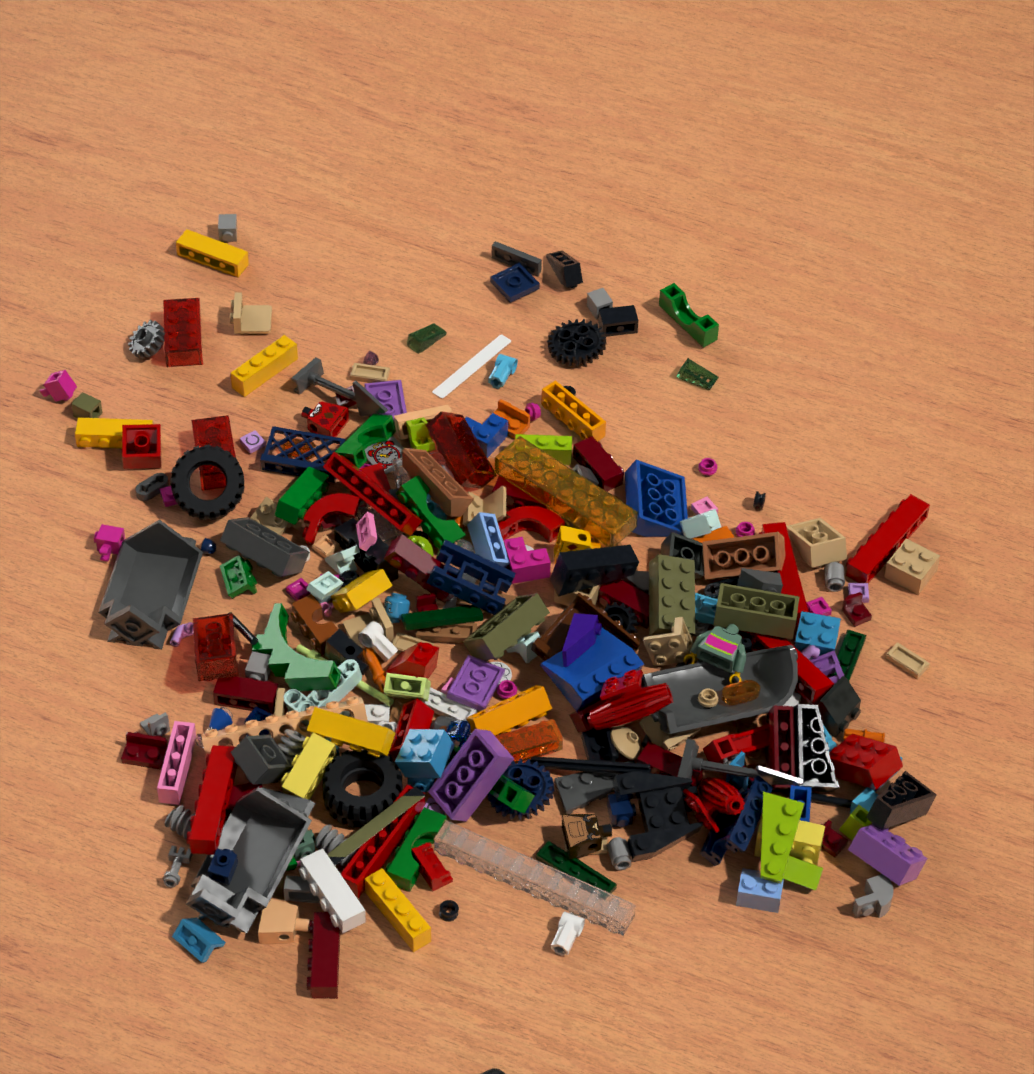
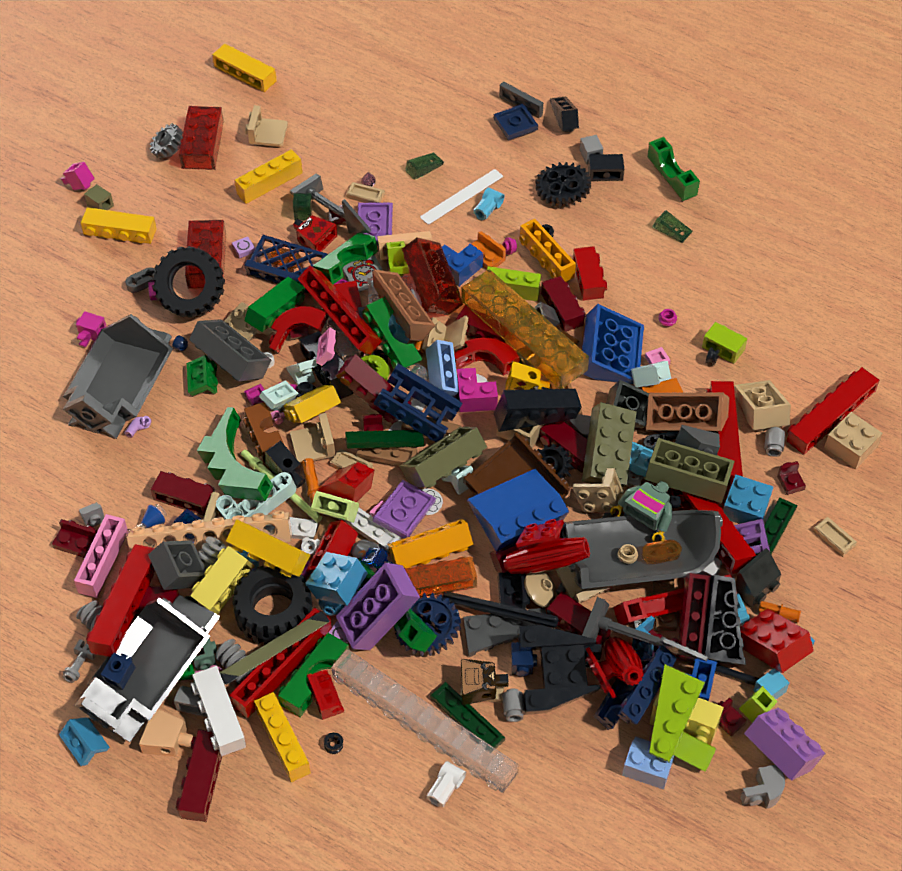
camera: 10 degrees right, 5 degrees up
(141, 446) = (138, 241): red slope -> none
(215, 647) = (161, 444): clear red brick -> none
(227, 227) = (263, 46): light grey brick -> none
(244, 630) = (193, 428): black bar -> none
(257, 666) = (198, 470): light grey brick -> none
(307, 393) = (302, 206): none -> clear green brick
(325, 546) = (290, 355): light nougat tile -> none
(373, 637) = (315, 452): white piece -> none
(395, 606) = (342, 422): dark azure head -> none
(506, 689) = (434, 514): dark pink plate -> none
(580, 637) = (510, 477): dark purple slope -> none
(620, 431) = (589, 273): none -> red brick
(745, 529) = (691, 382): dark pink plate -> none
(772, 483) = (727, 341): none -> lime brick
(811, 651) = (739, 517): lavender arm -> none
(819, 606) = (754, 471): dark pink tile -> none
(854, 588) = (800, 456): lavender tile -> none
(901, 802) = (806, 690): black wedge -> none

